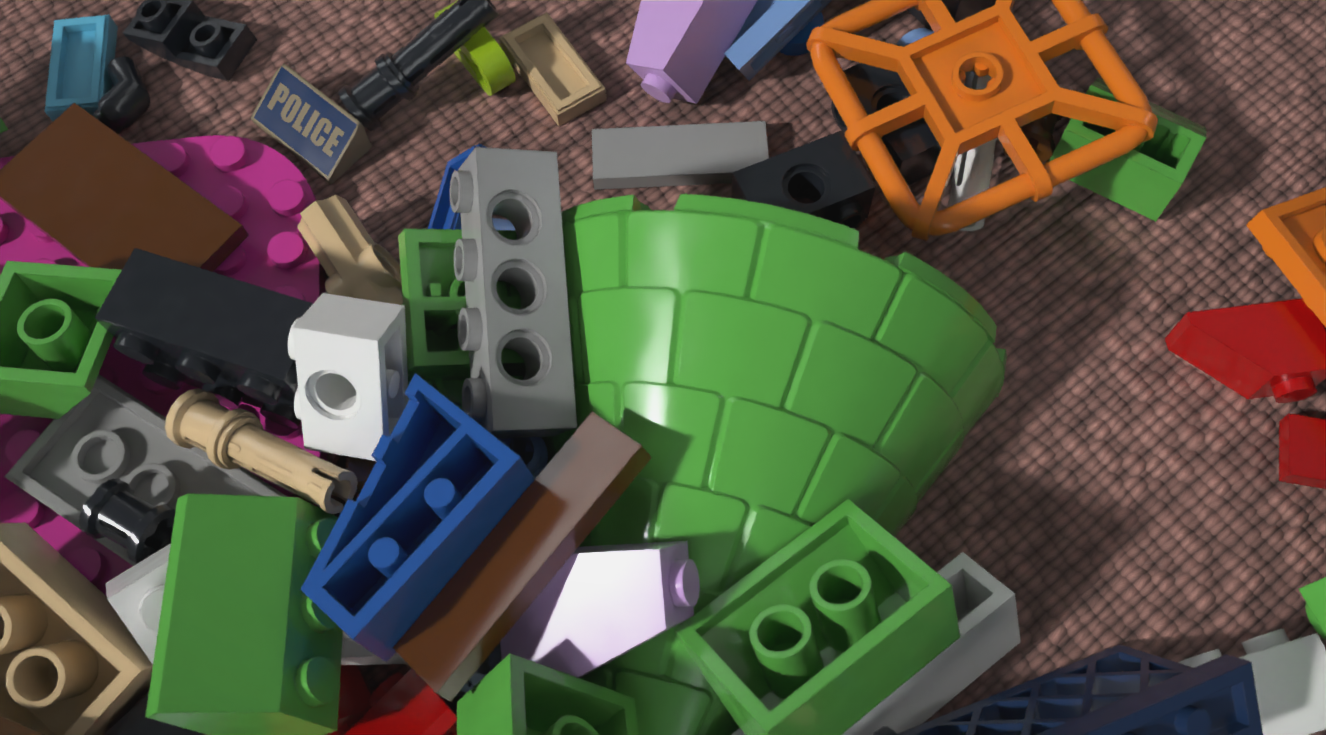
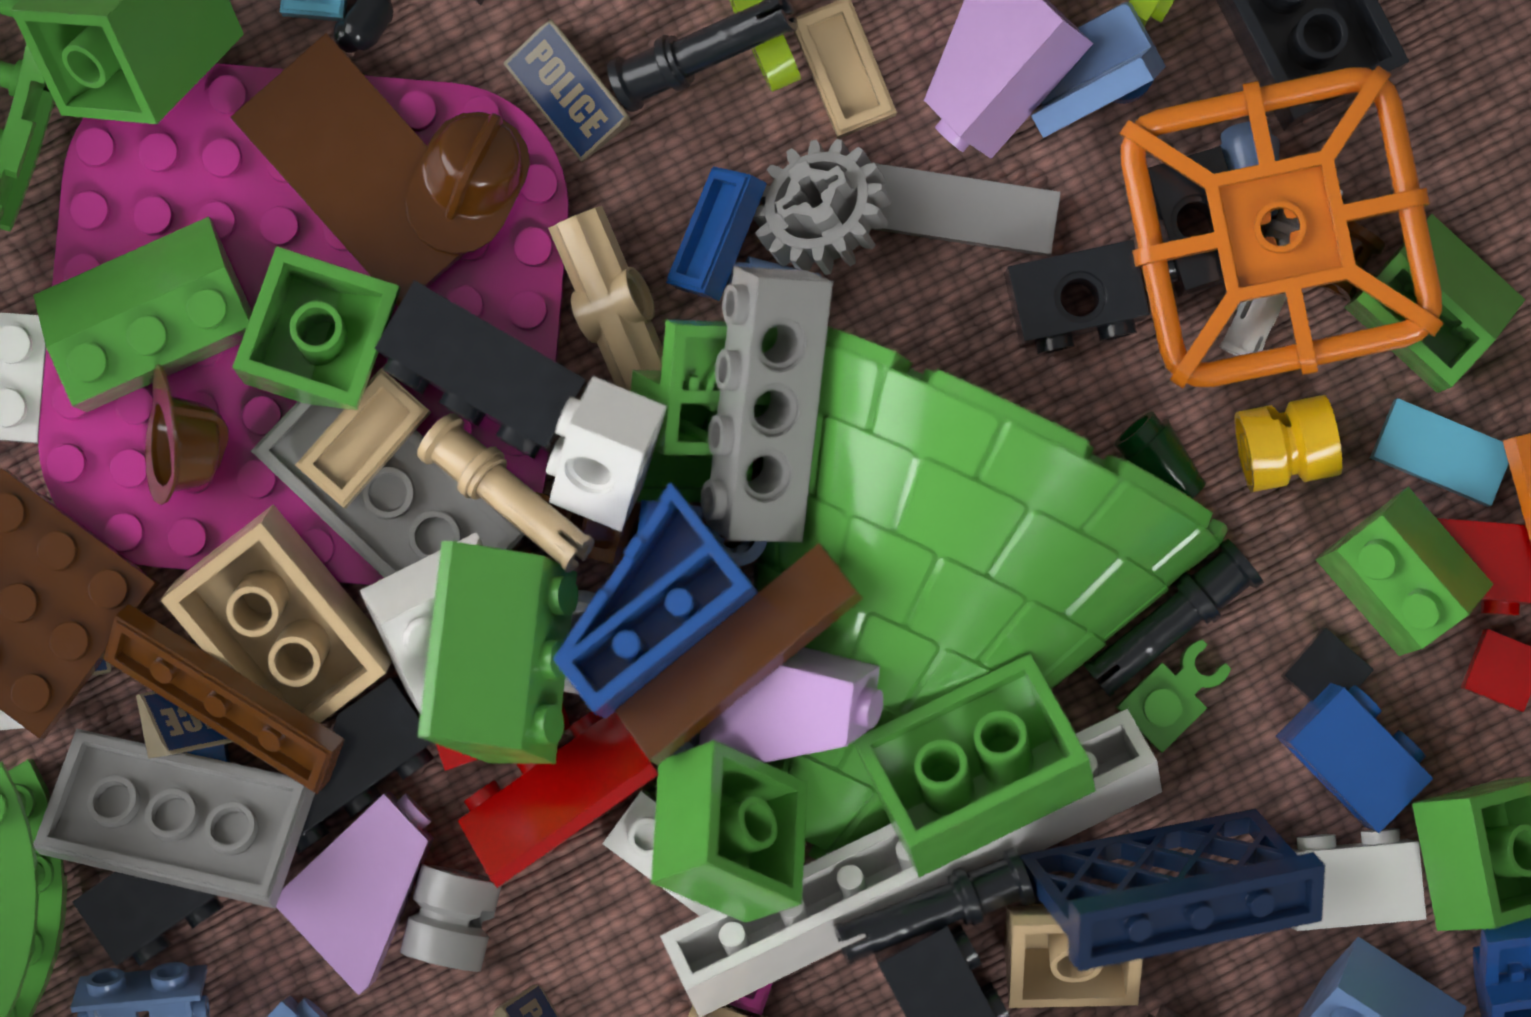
camera: 10 degrees right, 20 degrees up
(114, 435) = (363, 439): none -> tan tile
(127, 520) = (378, 531): black bush -> none
(210, 191) = (467, 182): none -> reddish brown piece
(580, 149) = (821, 207): none -> light grey gear
(994, 443) = (1197, 599): none -> black pin
(999, 542) = (1166, 702): none -> bright green plate
(1045, 277) = (1288, 443): none -> yellow wheel
(1145, 491) = (1326, 662): none -> black tile
(1180, 269) = (1441, 452): none -> medium azure tile
(1196, 372) = (1405, 573): none -> bright green slope
(1211, 562) = (1356, 755): none -> blue brick

